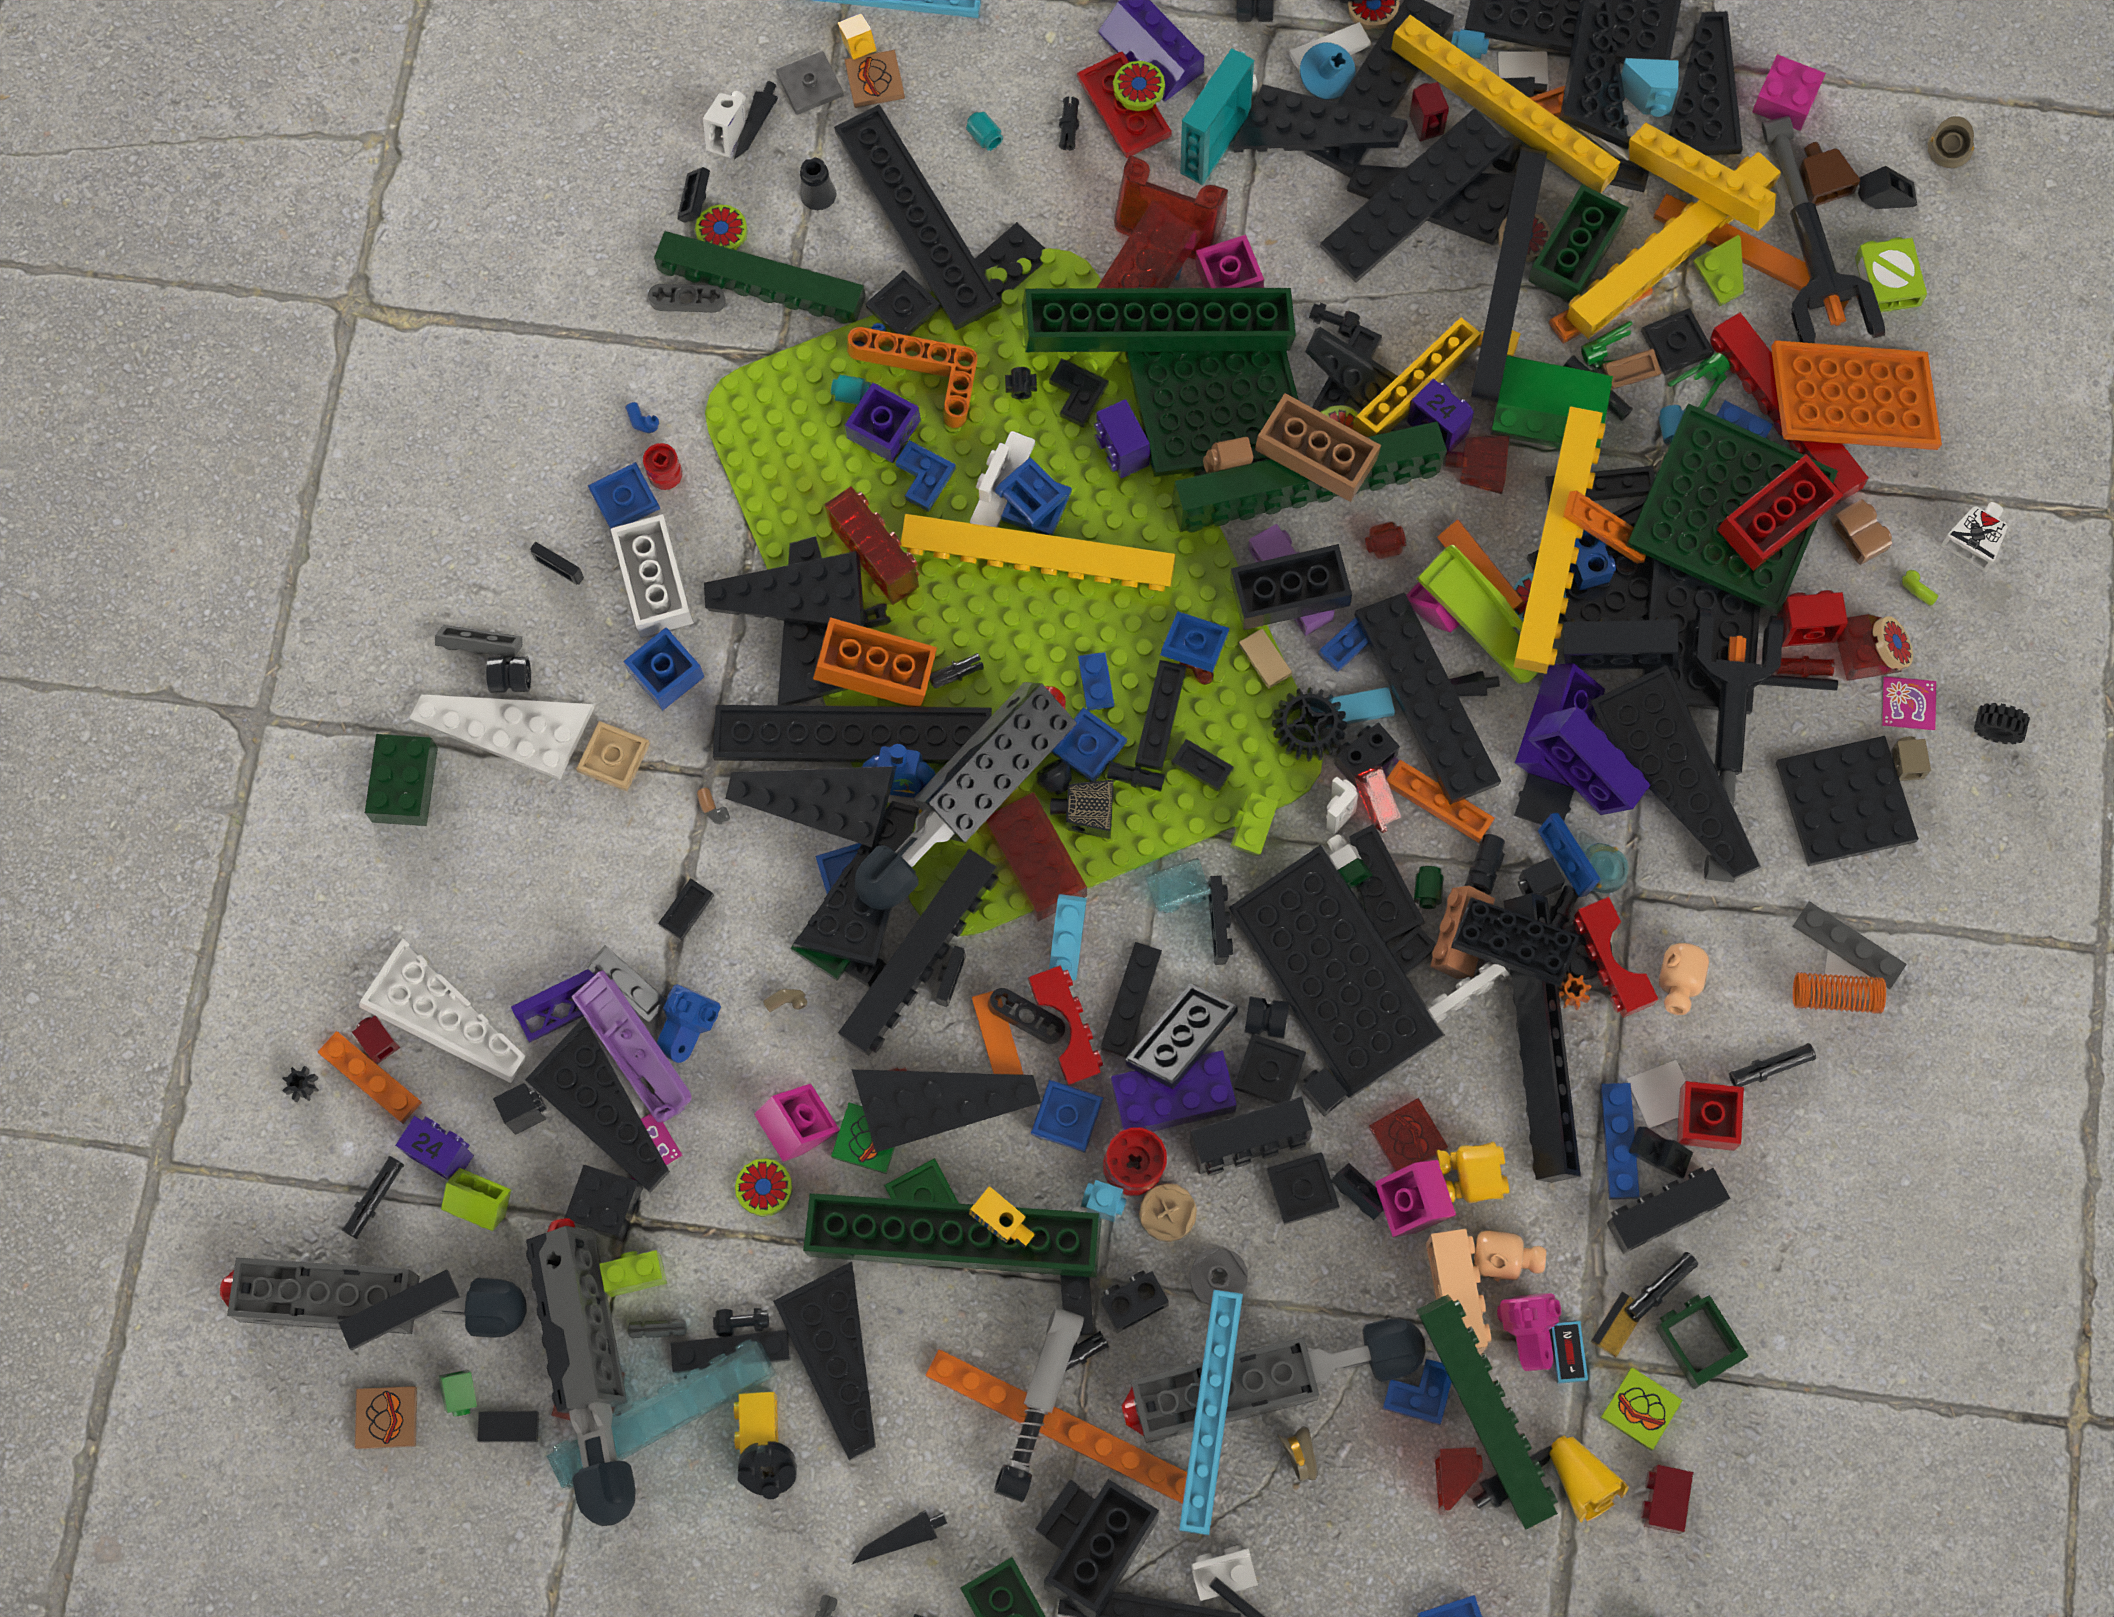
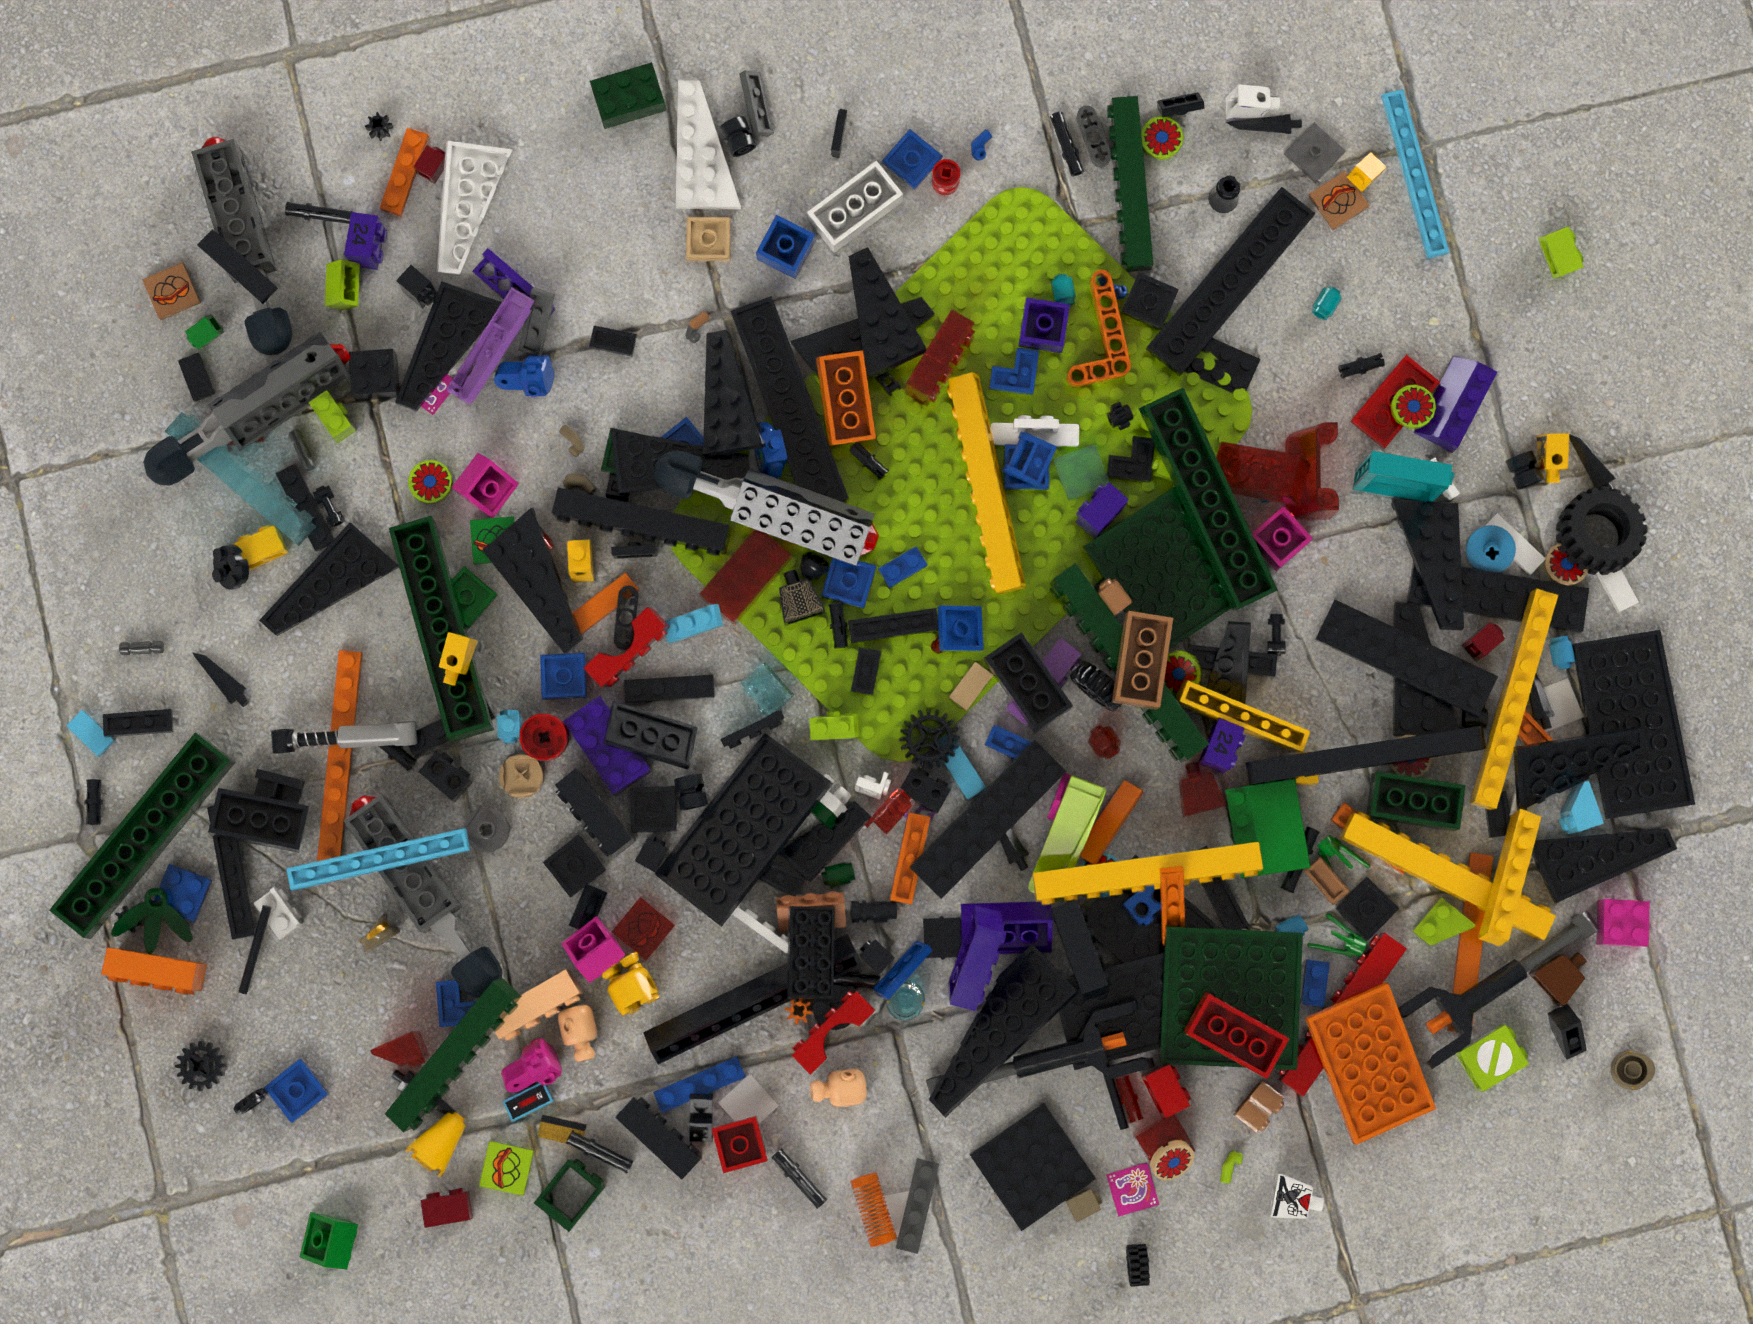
camera: 60 degrees right, 10 degrees up
(694, 328) = (1070, 152): none -> black pin
(837, 1010) = (579, 480): none -> dark tan arm
(936, 1040) = (580, 560): none -> yellow torso
(1067, 449) = (1081, 472): none -> clear light blue tile
(1320, 520) = (1095, 684): none -> black gear

